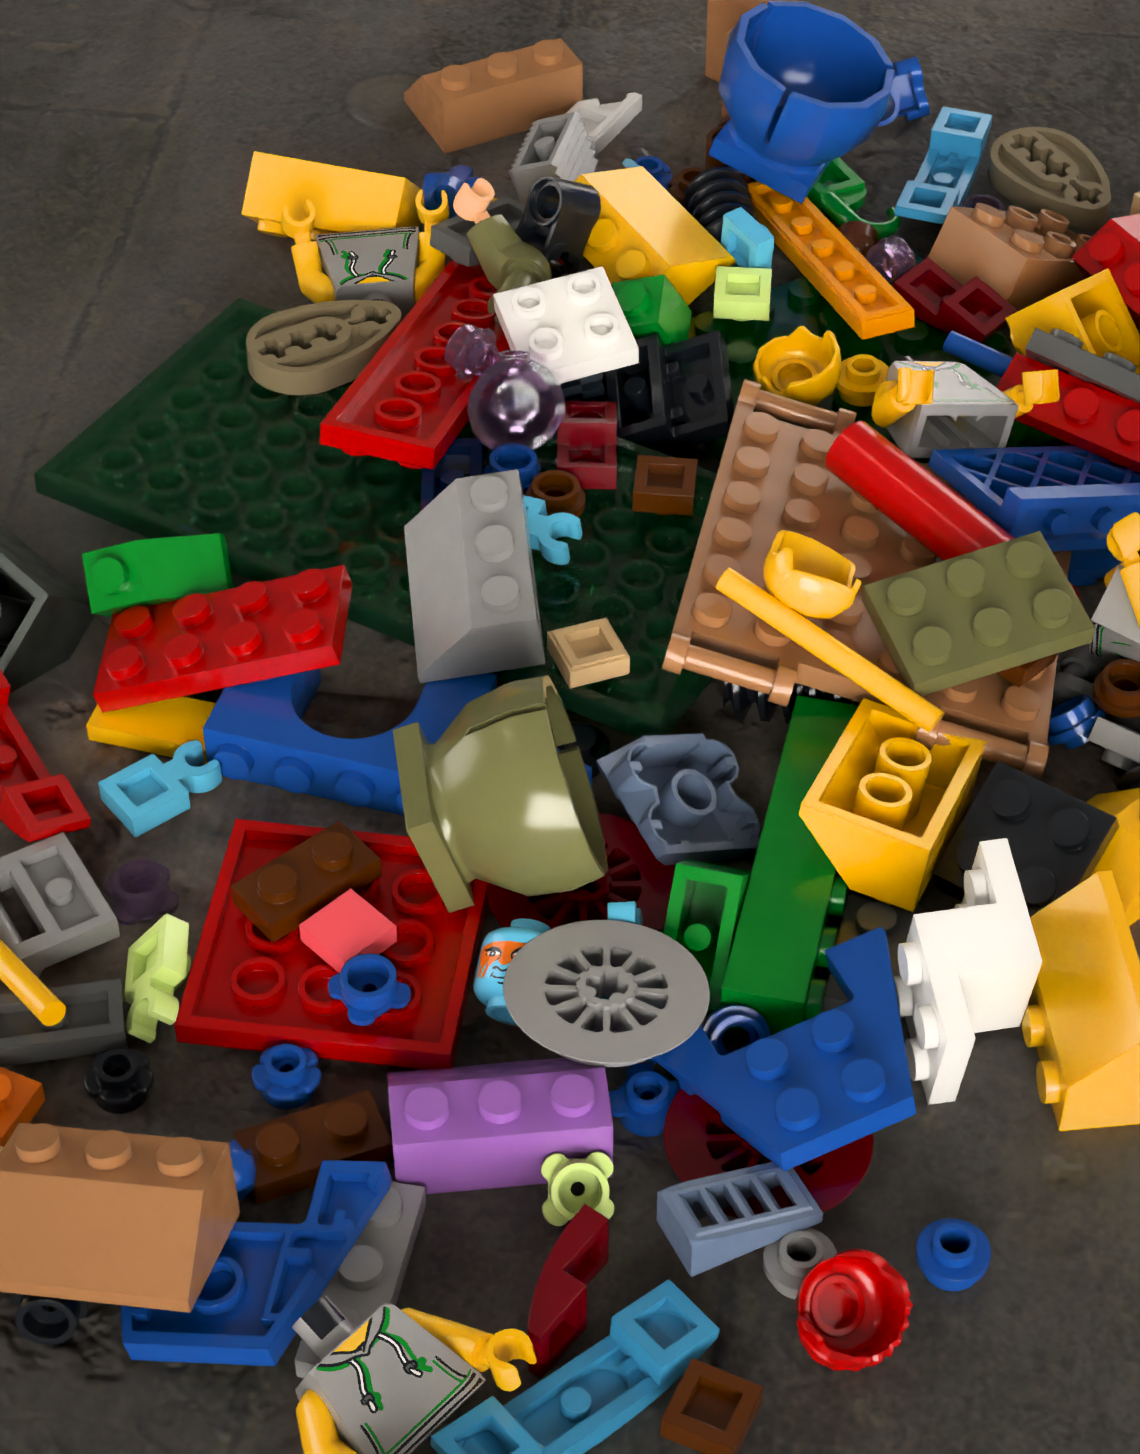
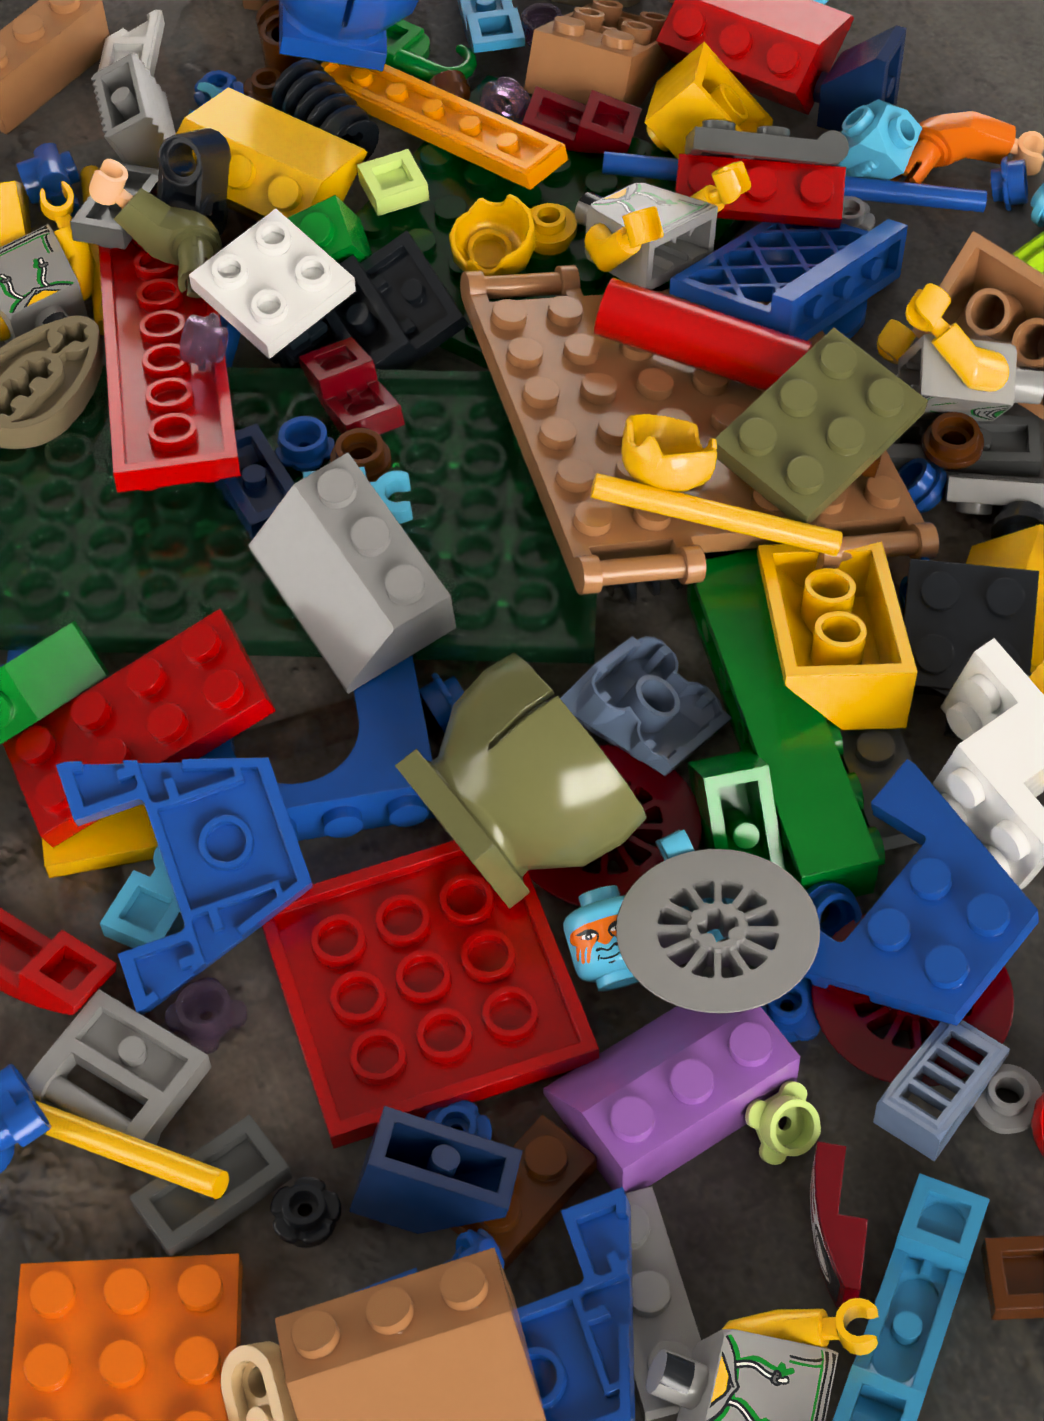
camera: 25 degrees left, 10 degrees up
(153, 972) = (274, 1093): yellowish green plate -> none
(227, 761) = (222, 848): none -> blue wing
(231, 1083) = (433, 1175): none -> dark blue slope
(305, 880) = (365, 938): reddish brown plate -> none
(346, 930) = (438, 973): coral tile -> none
(366, 974) = (491, 1002): blue plate -> none
(515, 402) = (277, 376): clear purple helmet -> none
(588, 653) = (490, 601): tan tile -> none
(664, 485) = (451, 404): reddish brown plate -> none
(747, 240) = (371, 130): medium azure plate -> none

